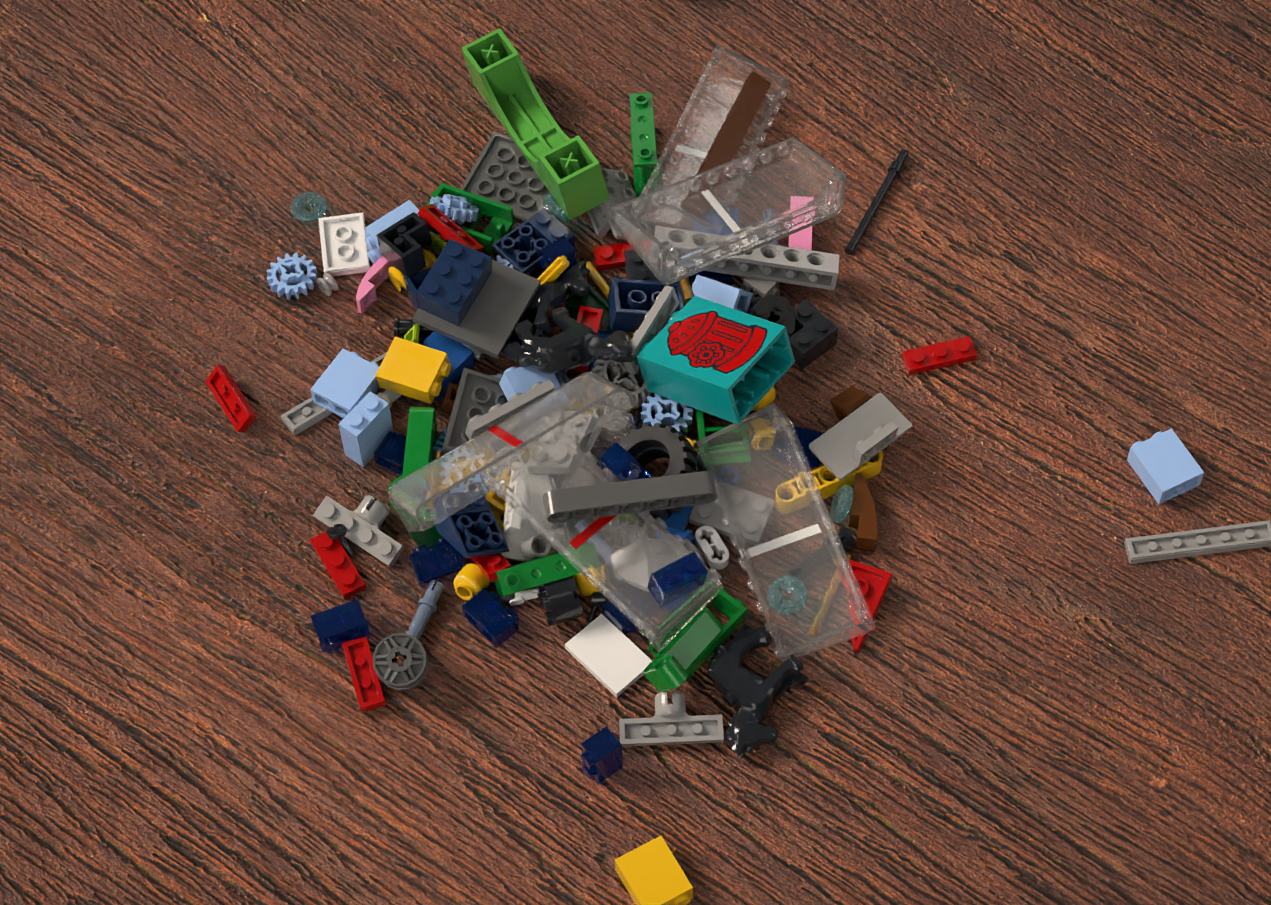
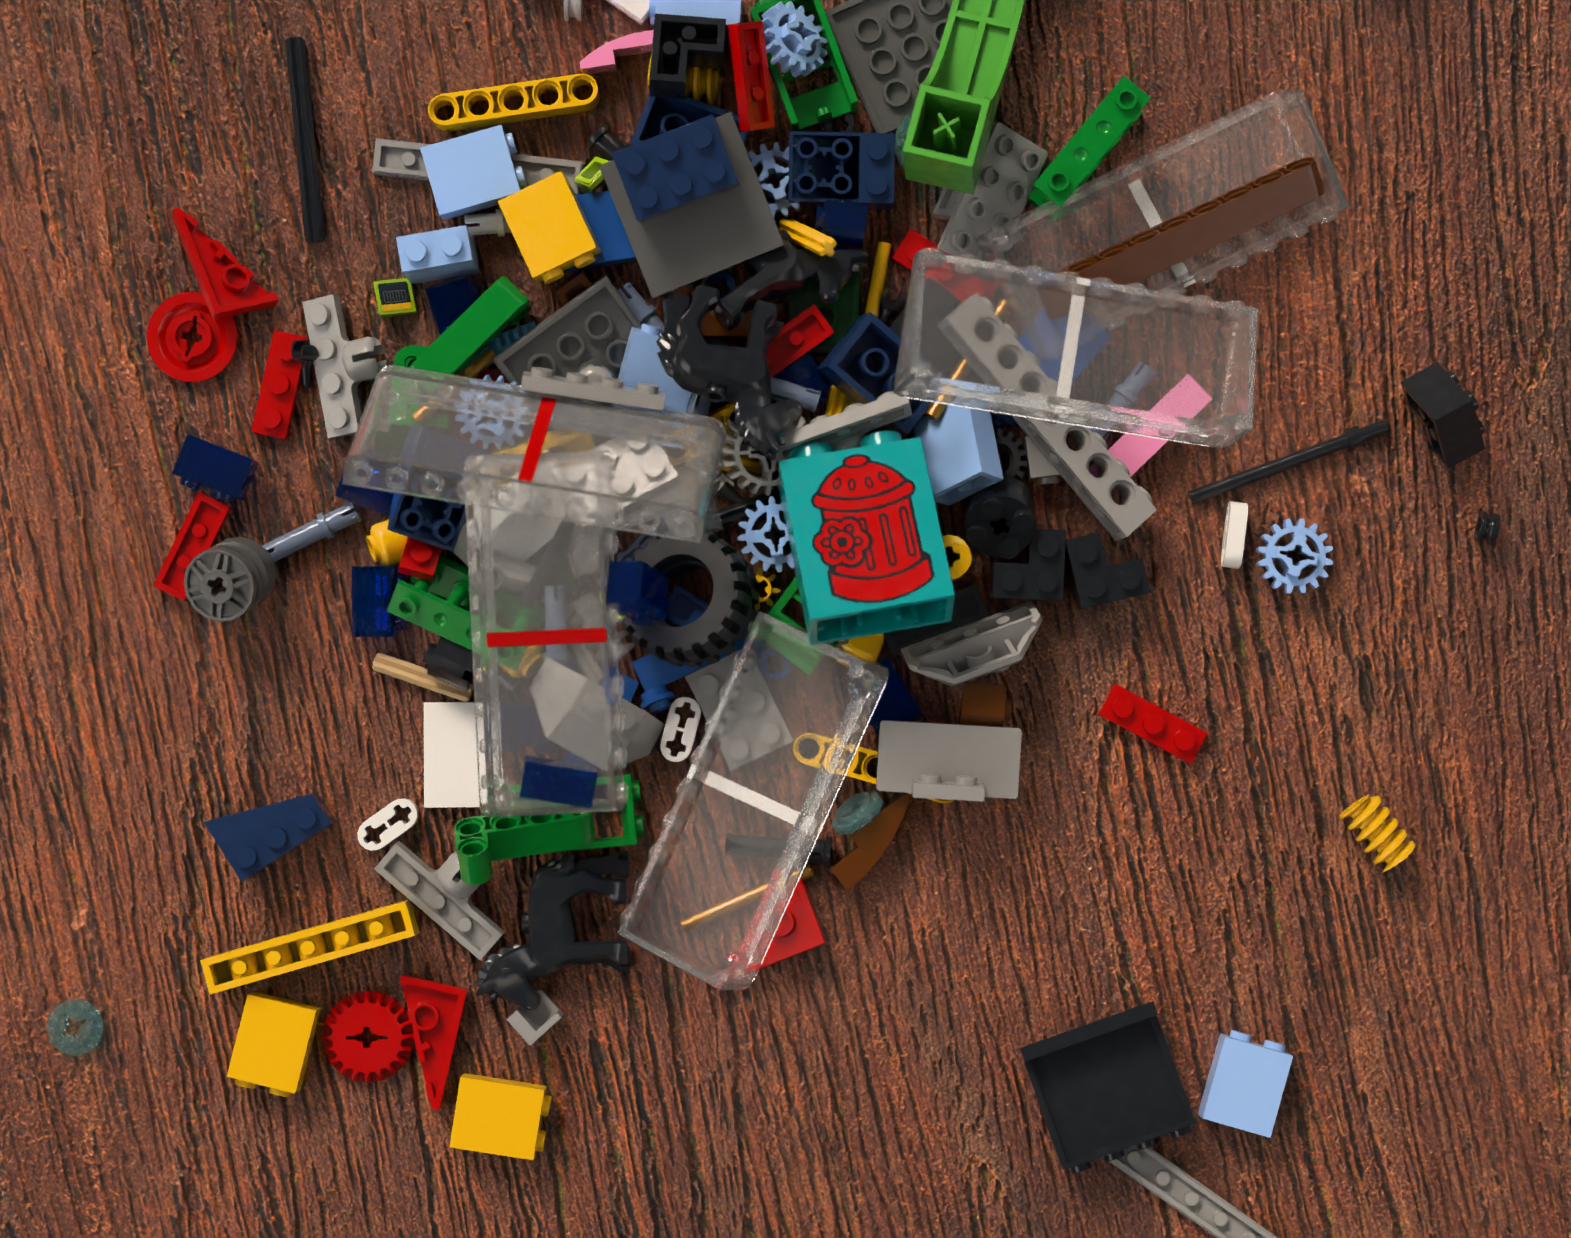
camera: 40 degrees right, 30 degrees up
(230, 398) = (339, 67): red plate -> none
(243, 446) = (305, 140): none -> black axle
(253, 536) = (222, 280): none -> red wing
(276, 565) = (170, 349): none -> red gear
(342, 335) = (498, 95): none -> yellow beam
(359, 477) = (394, 297): none -> slope
(543, 774) = (268, 833): none -> dark blue wedge
(551, 635) = (417, 675): none -> tan axle
(600, 718) = (383, 817): none -> white beam
(601, 755) = (335, 871): clear blue brick -> none
(624, 809) = (310, 946): none -> yellow brick
(629, 497) = (597, 639): dark grey beam -> none
(702, 851) = (383, 1017): none -> red gear
(731, 792) = (435, 1017): none -> red wing
(783, 748) = (534, 1023): none -> light grey panel
(787, 584) = (682, 881): clear light blue gear -> none
(789, 388) = (967, 608): none -> black plate
(815, 808) = (500, 1116): none -> yellow brick
(821, 384) = (976, 648): none -> light grey wedge
(848, 311) = (1094, 580): none -> black brick
(886, 247) = (1234, 534): none -> white beam
(924, 232) = (1297, 540): none -> light blue gear
(927, 119) = (1446, 413): none -> black brick
(996, 153) = (1487, 527): none -> black bush
(1096, 307) = (1378, 831): none -> yellow piece
(1101, 524) = (1108, 1087): none -> black panel

